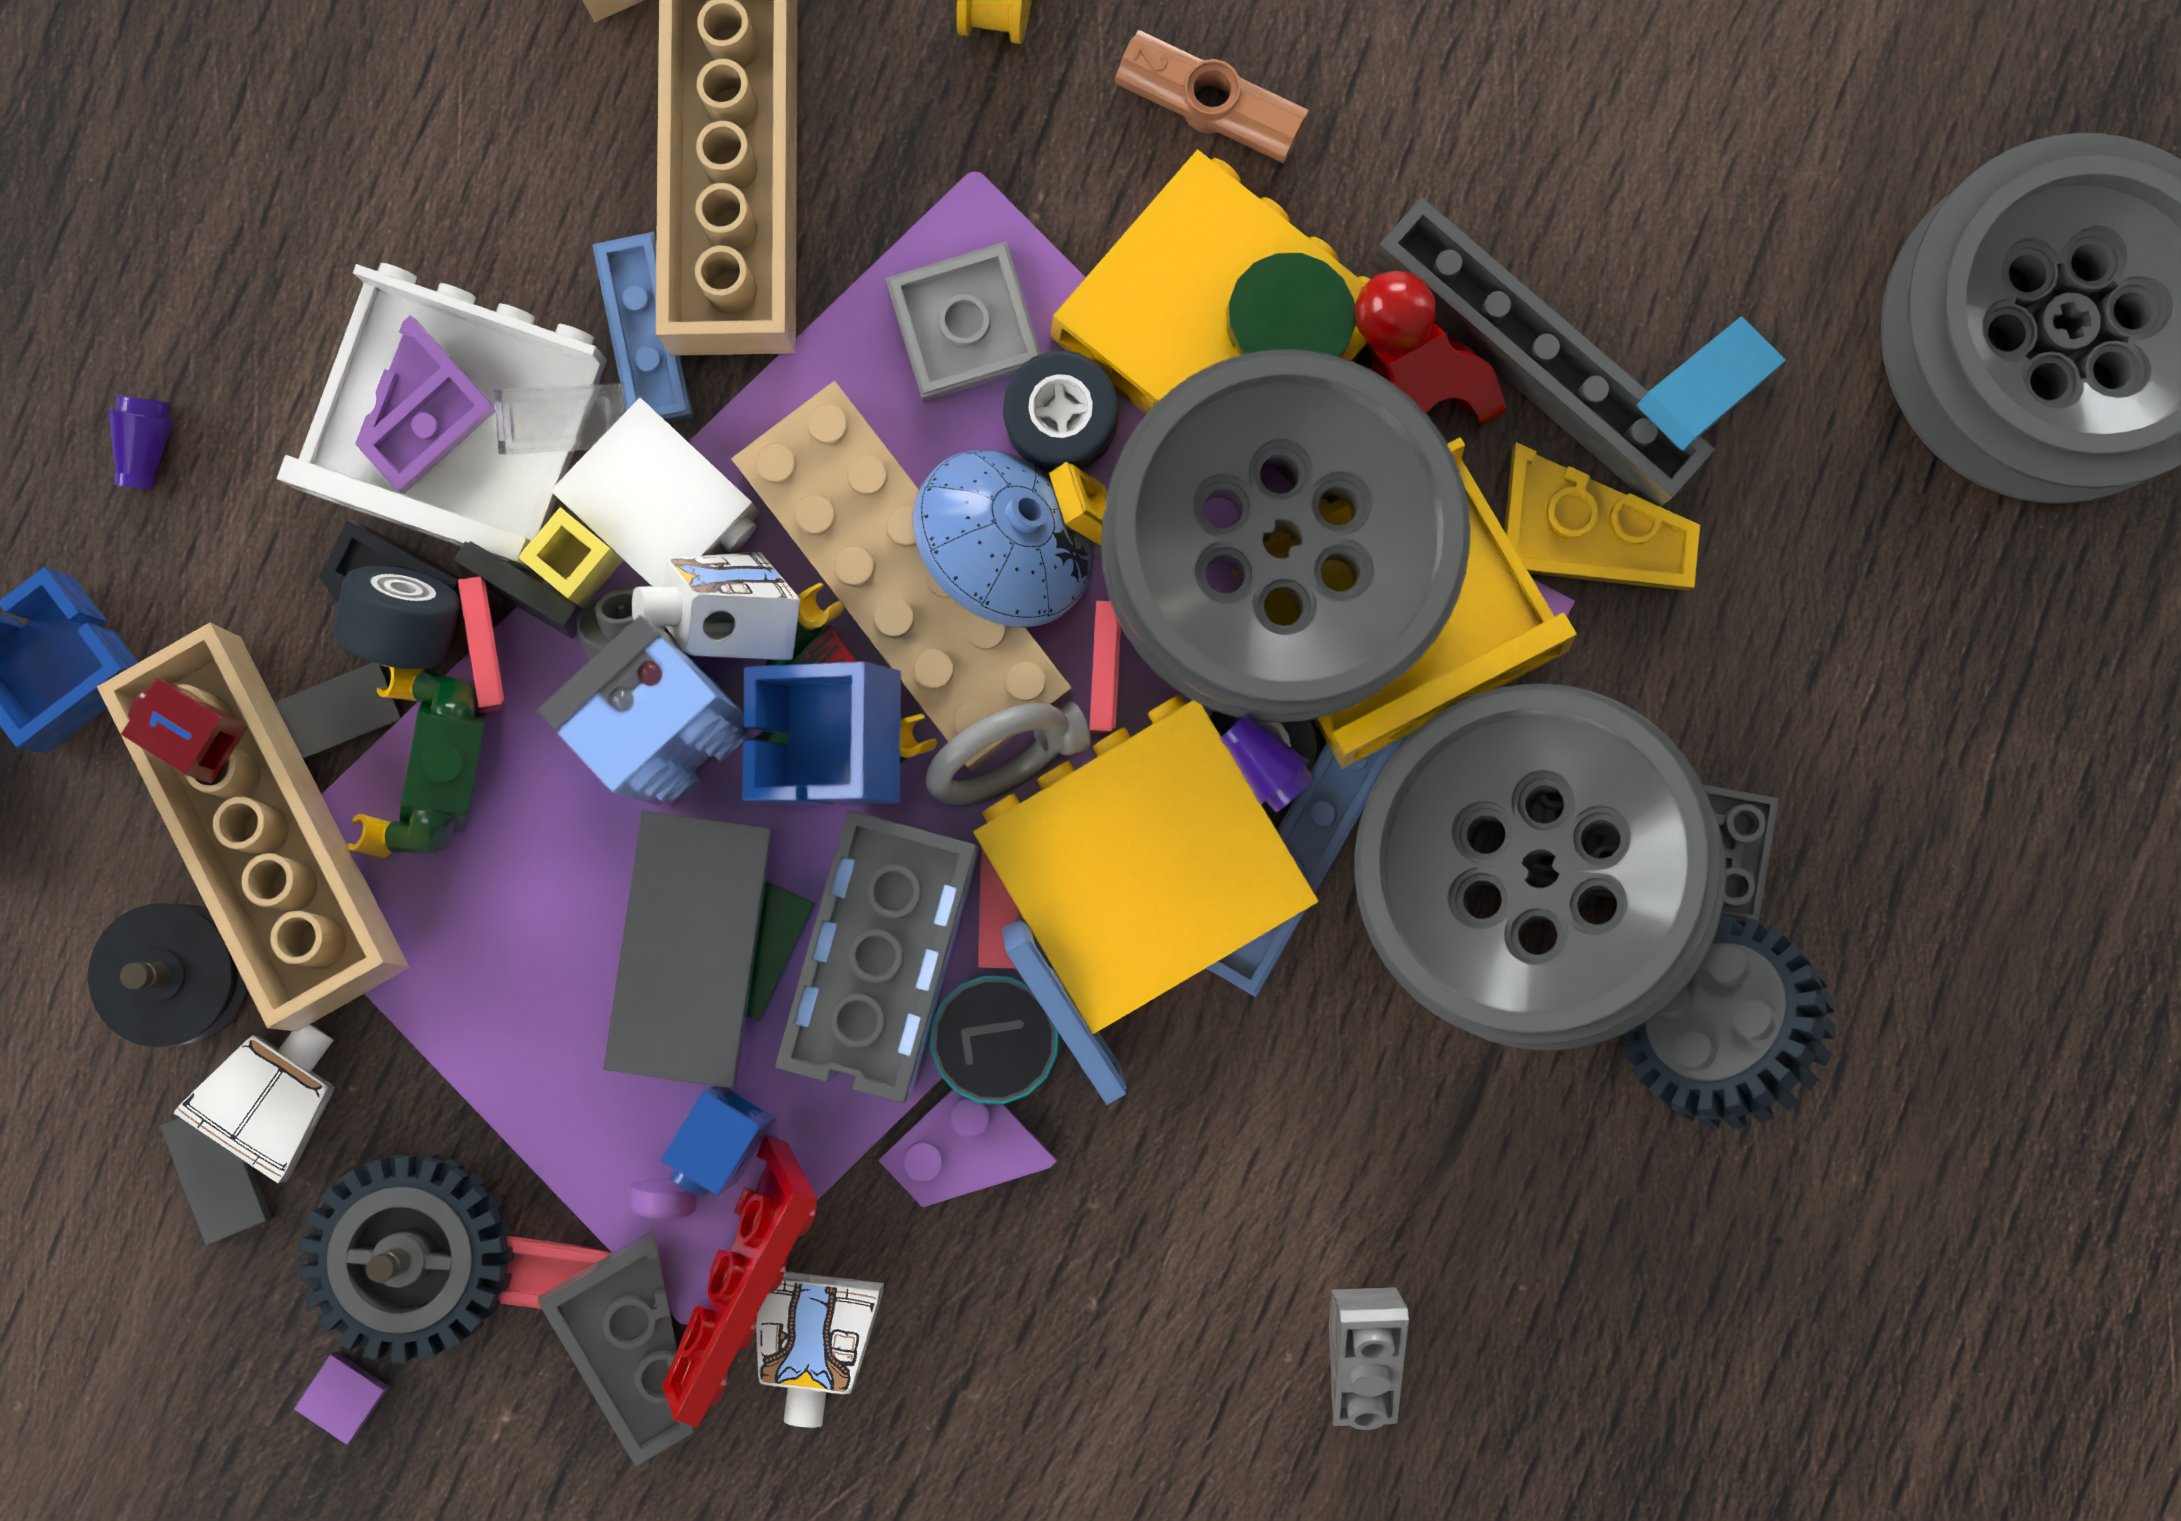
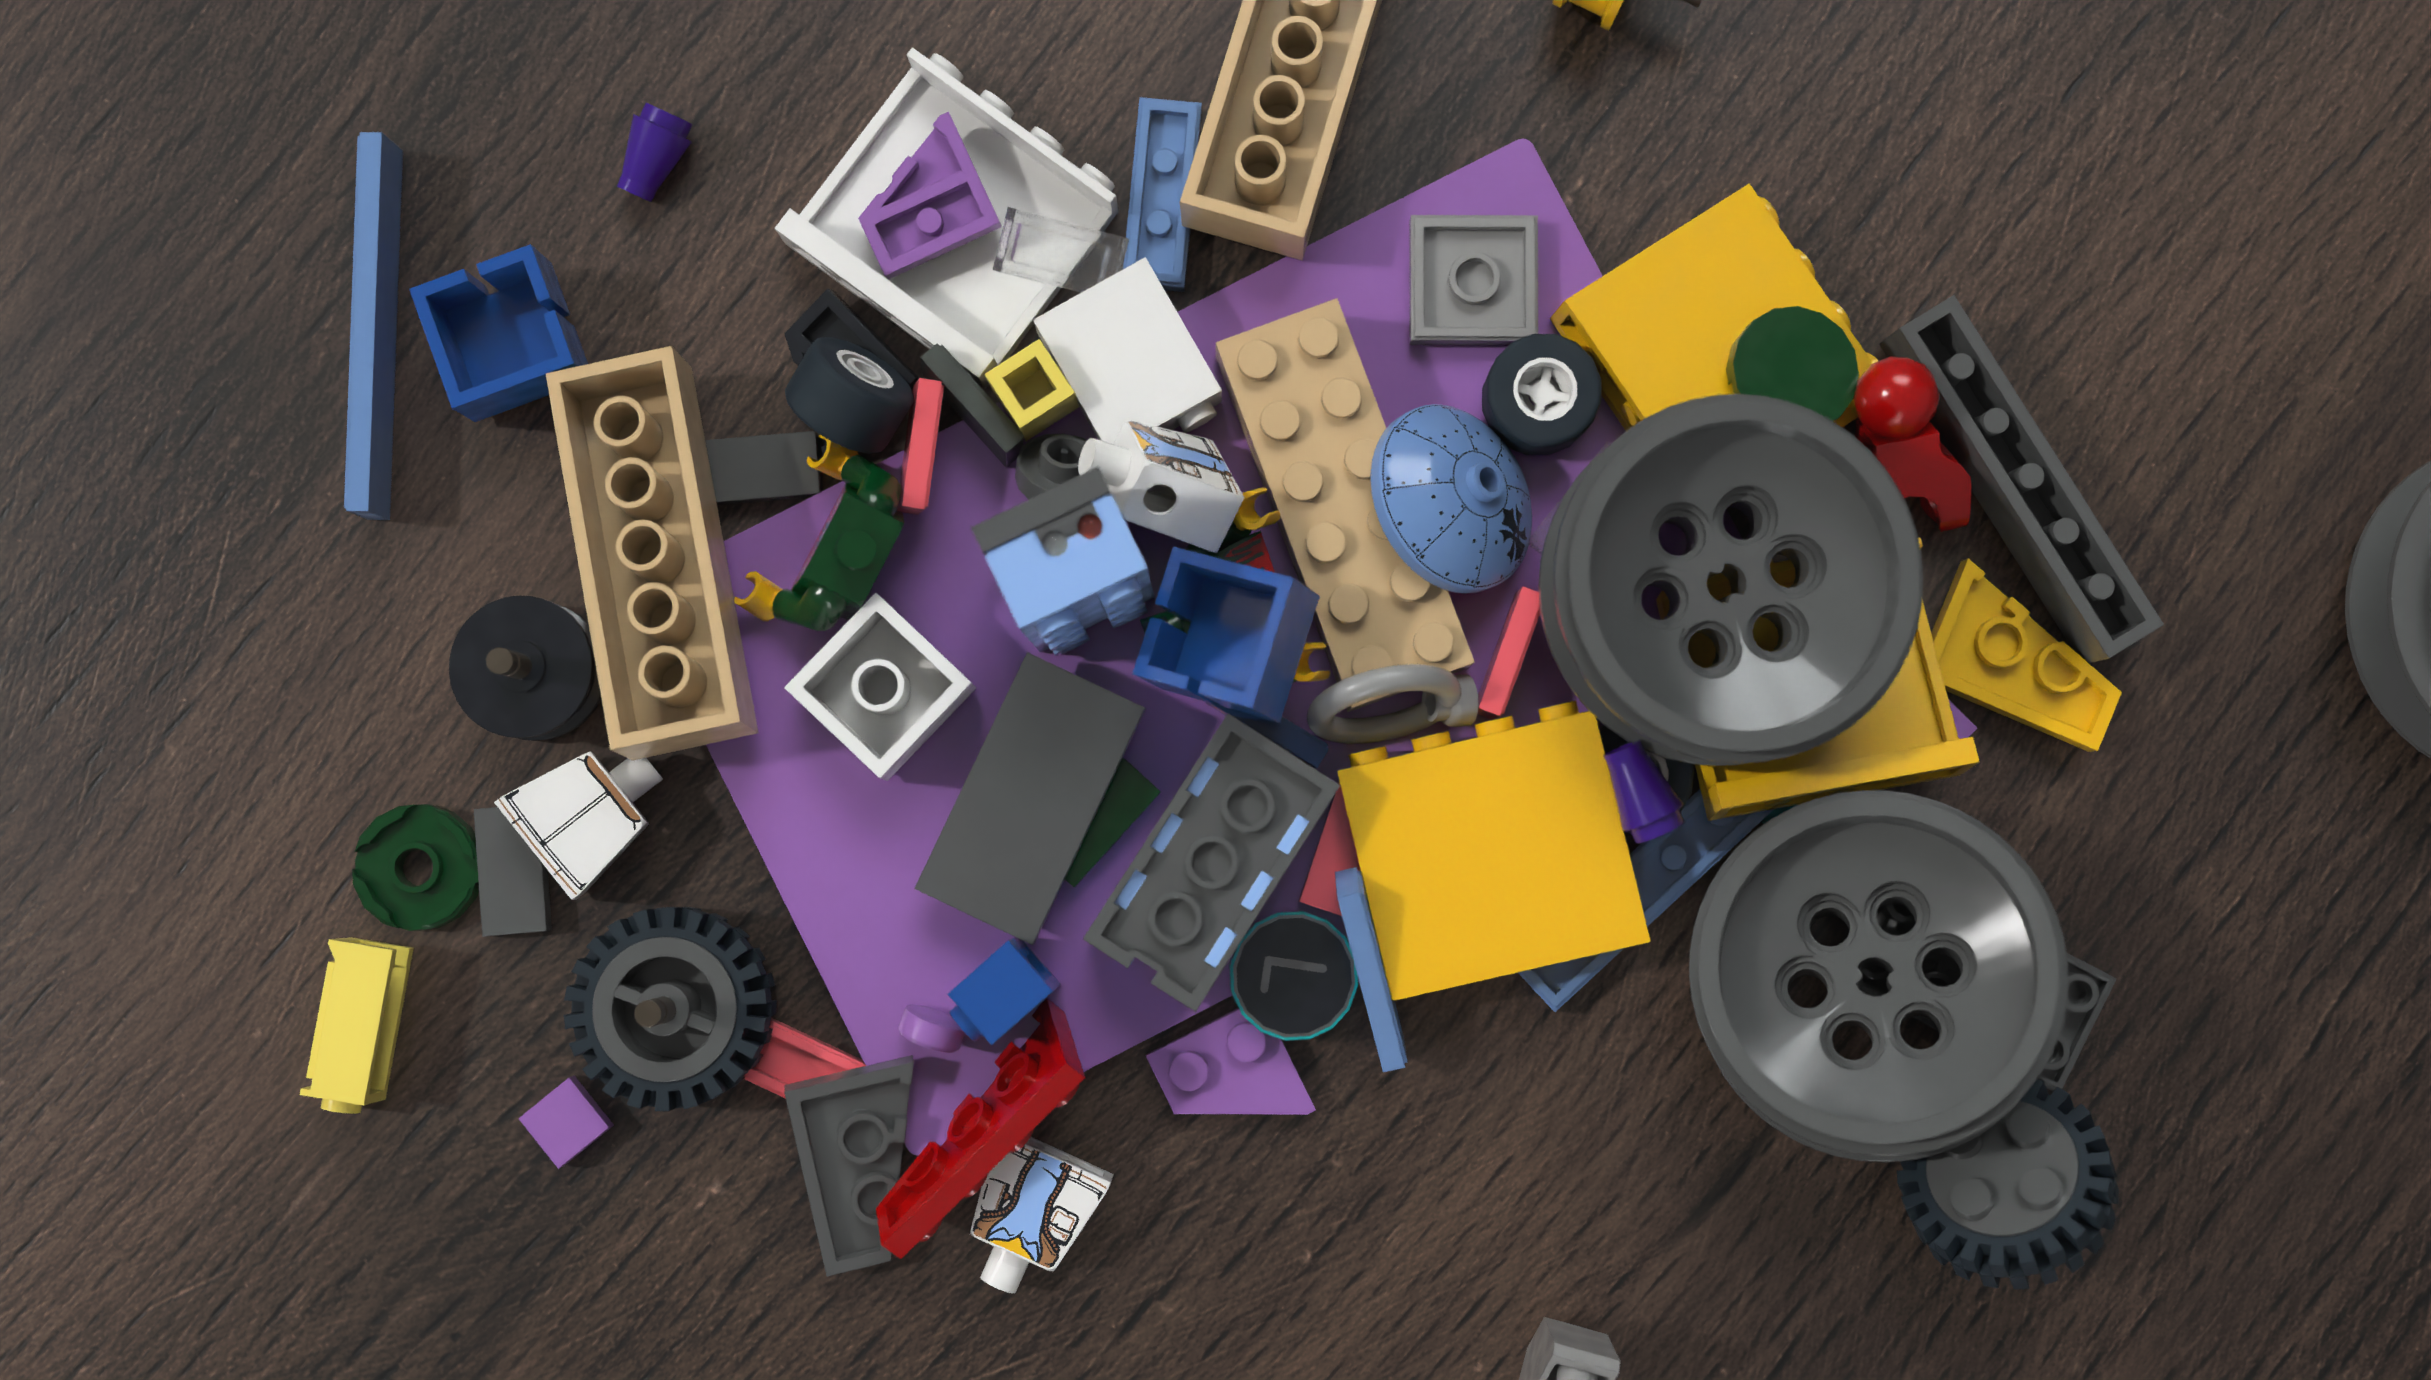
camera: 15 degrees right, 0 degrees up
(86, 1195) = (381, 876): none -> dark green tile
(110, 1366) = (357, 1023): none -> light yellow window
(182, 730) = (616, 440): dark red brick -> none
(512, 887) = (880, 687): none -> white brick
(913, 813) = (1284, 734): none -> dark blue tile
(1080, 500) = (1536, 487): yellow tile -> none
(1174, 77) = (1745, 106): nougat piece -> none
(1711, 383) = (2176, 560): dark azure tile -> none

